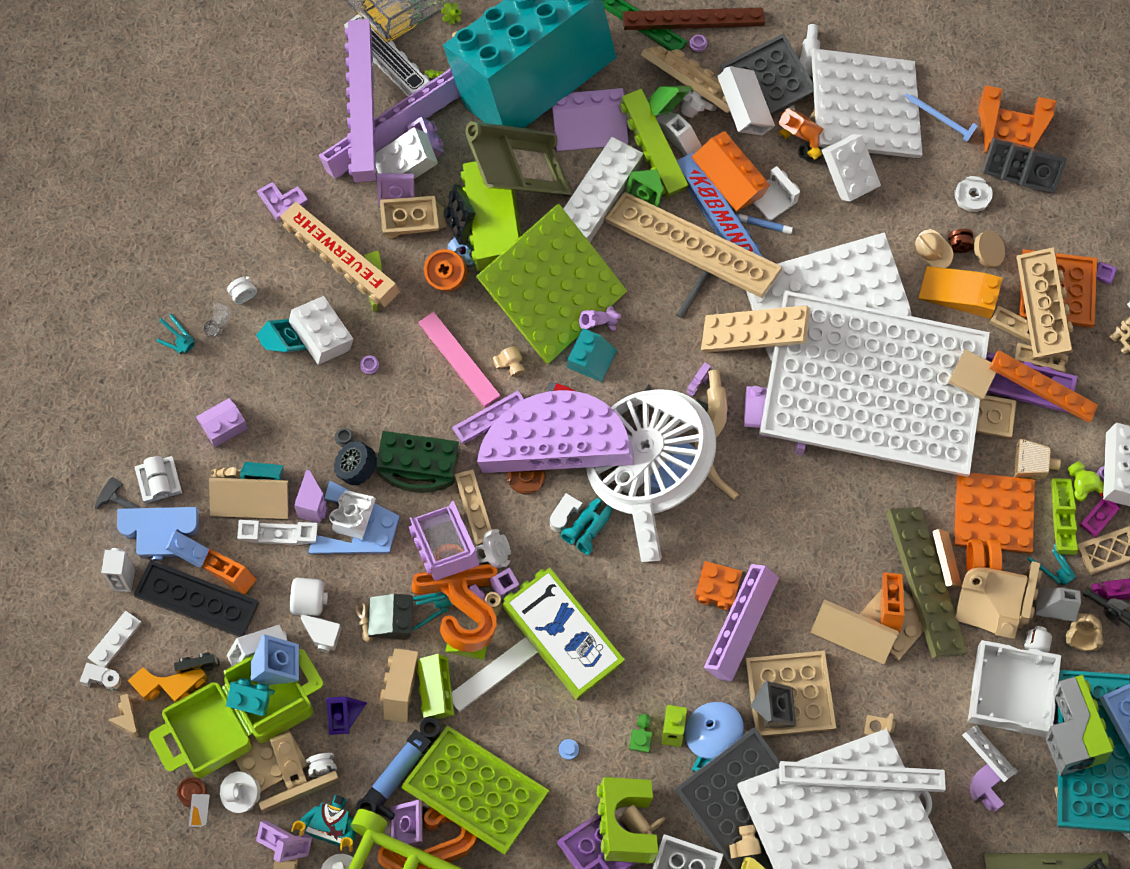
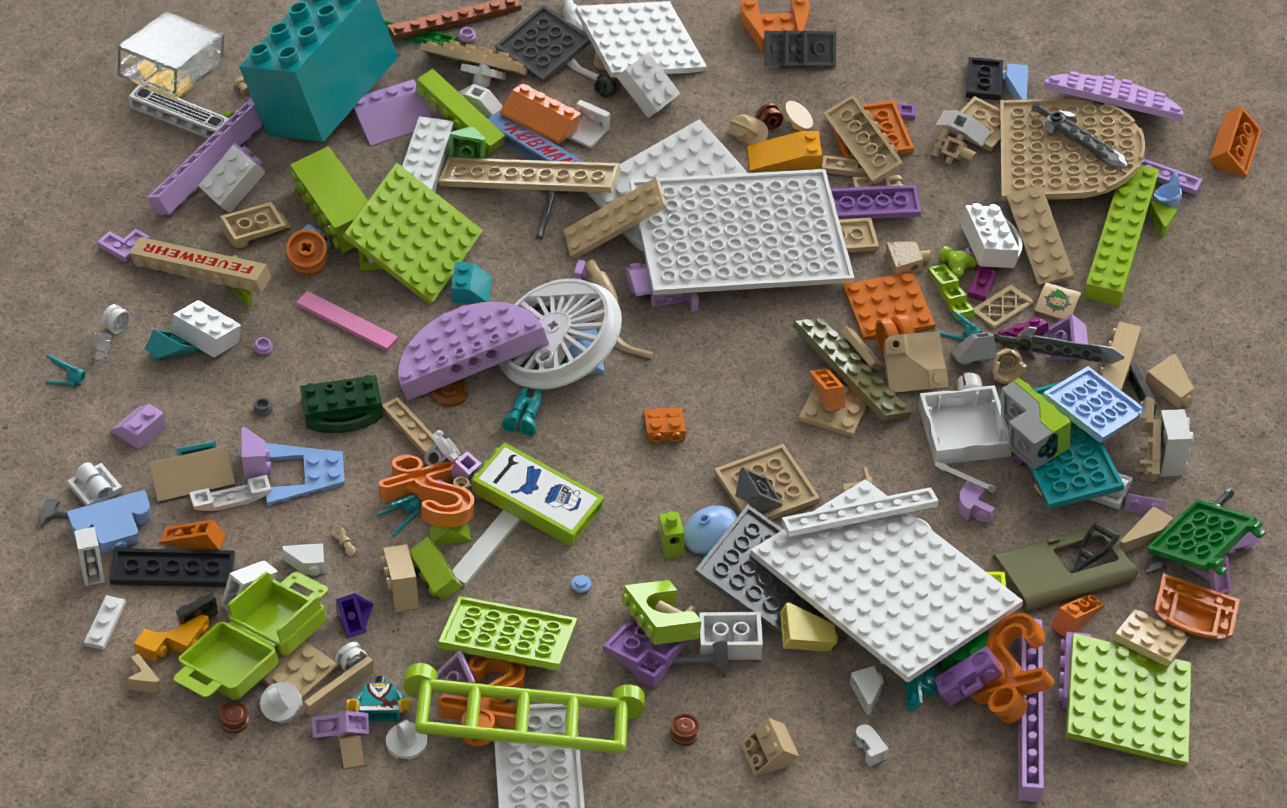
camera: 20 degrees left, 20 degrees down
(100, 675) = (104, 652): white leg -> none
(187, 549) = (148, 526): light blue plate -> none
(199, 810) = (247, 727): white sticker -> none
(226, 472) = (167, 454): tan piece -> none
(249, 696) = (261, 615): teal bracket -> none
(275, 661) = (274, 582): light blue slope -> none
(288, 760) = (318, 659): tan plate -> none
(307, 597) = (281, 531): white head -> none
(352, 514) = (298, 459): white slope -> none
(355, 463) = (283, 418): black wheel -> none
(361, 101) = (172, 142): lavender brick -> none
(390, 616) = (369, 526): pearl dark grey slope -> none
(395, 186) = (230, 201): lavender tile -> none
(415, 748) = (436, 620): piece -> none
(443, 542) = (396, 451): lavender window -> none
(451, 13) = (227, 66): lime plant -> none
(459, 214) = (302, 204): black plate -> none
(484, 419) = (391, 358): lavender plate -> none
(498, 166) = (325, 141): olive piece -> none
(510, 358) = (395, 306): tan piece -> none
(563, 511) = (497, 405): white leg -> none
(589, 318) = (461, 252): lavender animal -> none
(641, 739) = (644, 558): bright green plate -> none
(646, 532) = (582, 396): white plate -> none
(667, 98) = (460, 69): bright green slope -> none
(741, 622) = (698, 442): lavender brick -> none
(746, 101) = (531, 58): white brick -> none
(748, 845) = (779, 598): tan piece -> none
(766, 224) = (590, 151): medium blue bar -> none
(801, 126) = (590, 63): orange torso -> none
(854, 632) = (804, 420): tan tile -> none
(967, 133) = (740, 41): light blue piece -> none
(970, 203) = (771, 88): white plate -> none
(972, 374) = (825, 201): tan tile -> none
(1027, 611) = (947, 348): tan plate -> none
(1043, 386) = (890, 196): orange plate -> none

